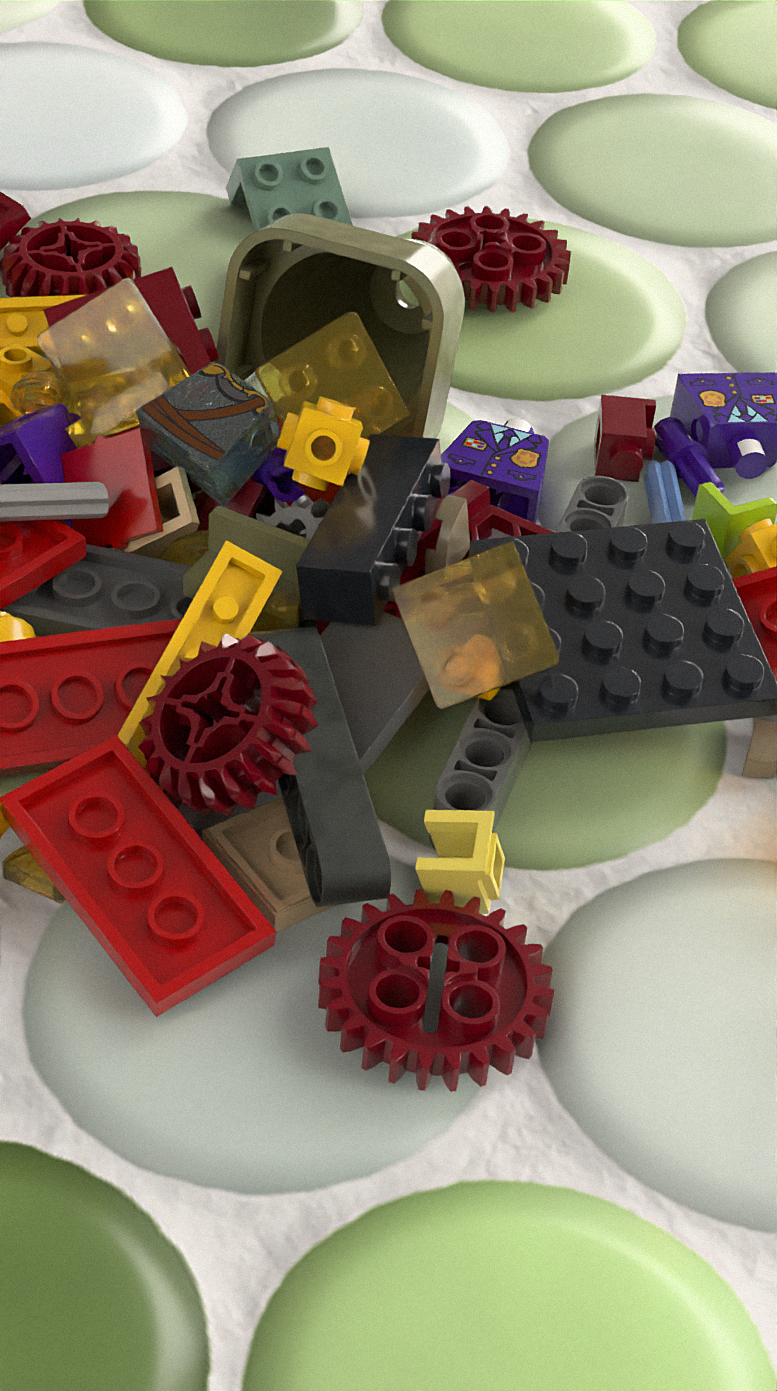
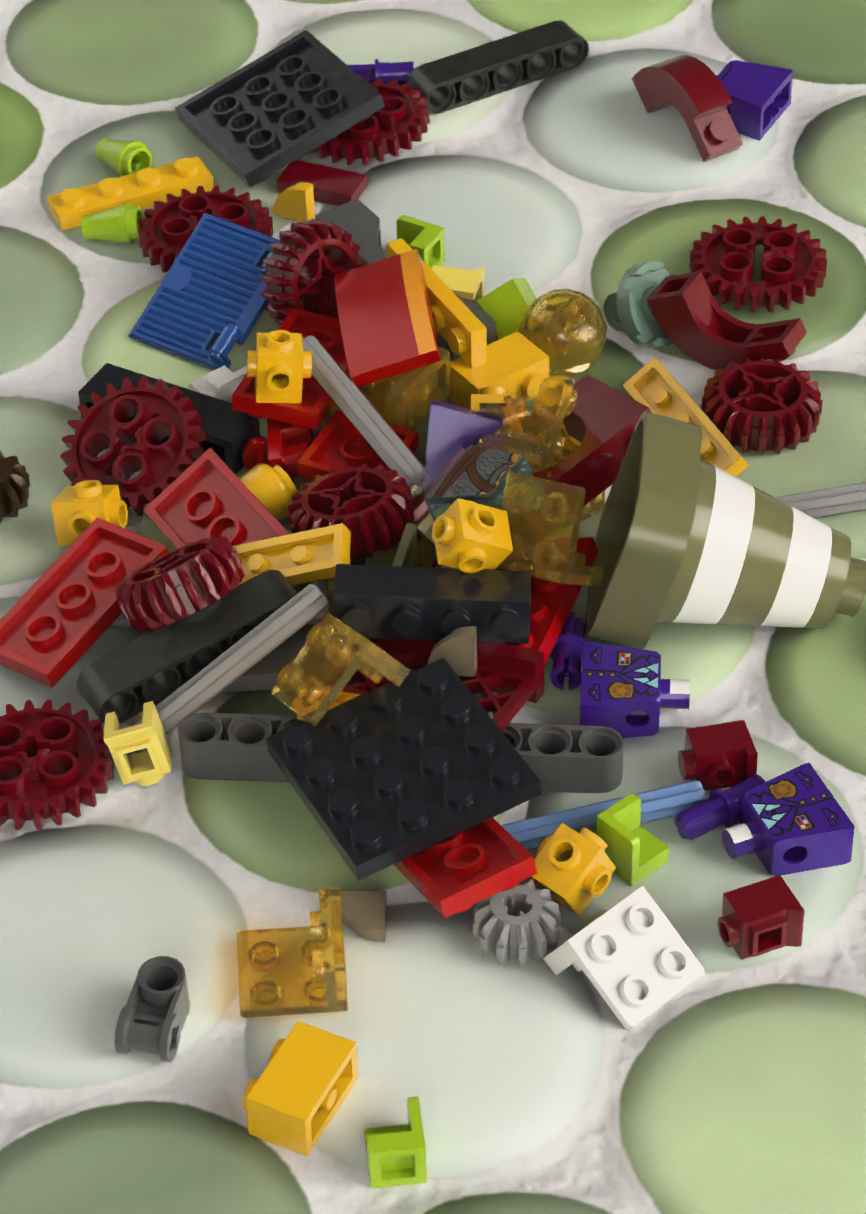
camera: 80 degrees right, 0 degrees up
(130, 554) = (365, 499): none -> dark red gear
(372, 737) = (240, 657): none -> light grey axle

